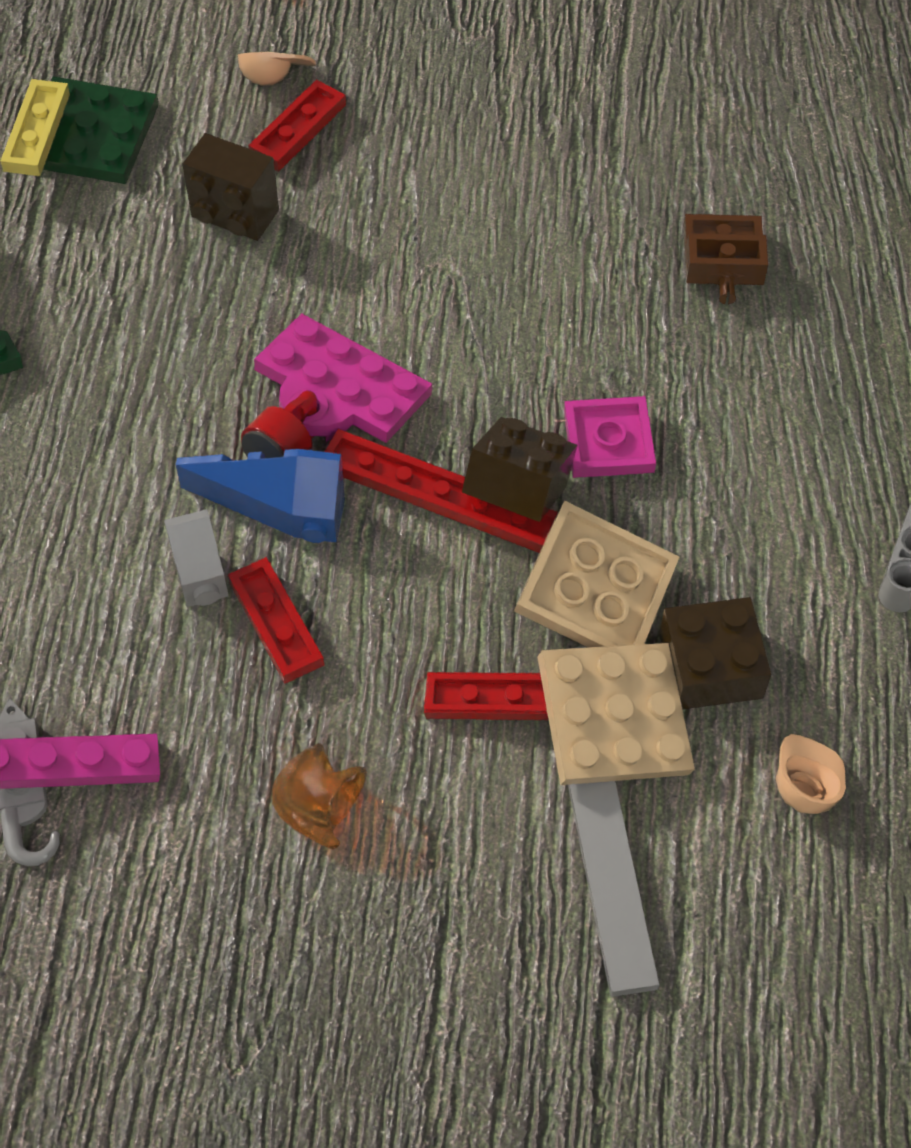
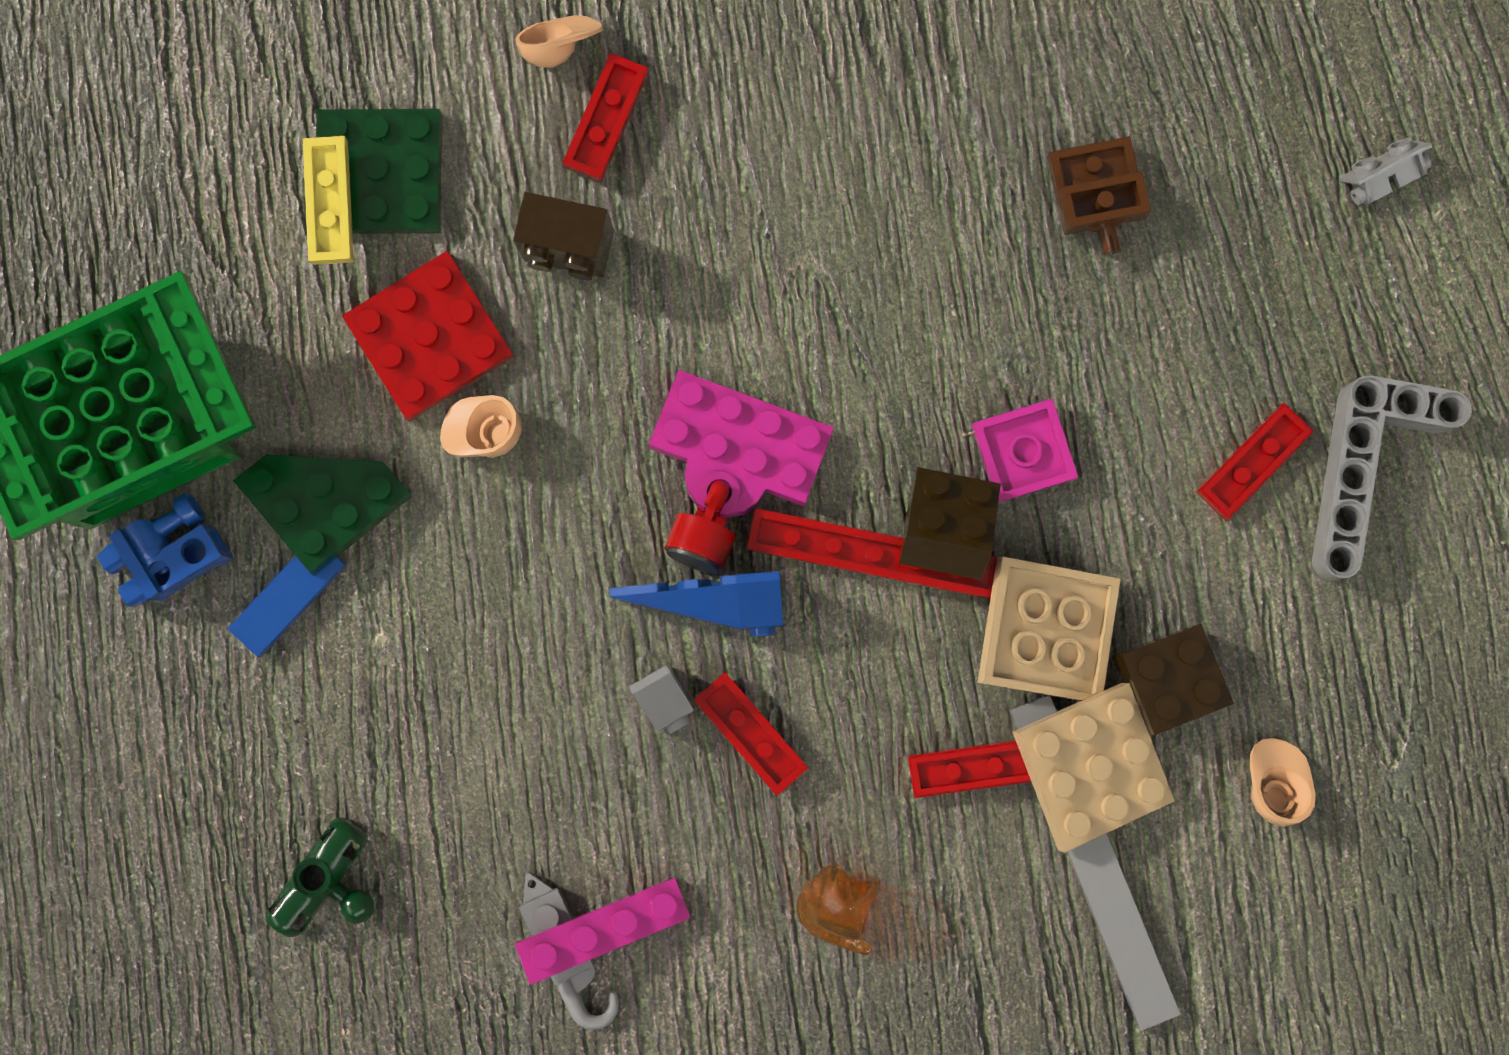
camera: 10 degrees left, 25 degrees up
(85, 251) = (427, 336): none -> red plate
(109, 321) = (481, 427): none -> light nougat cap
(833, 492) = (1254, 461): none -> red tile

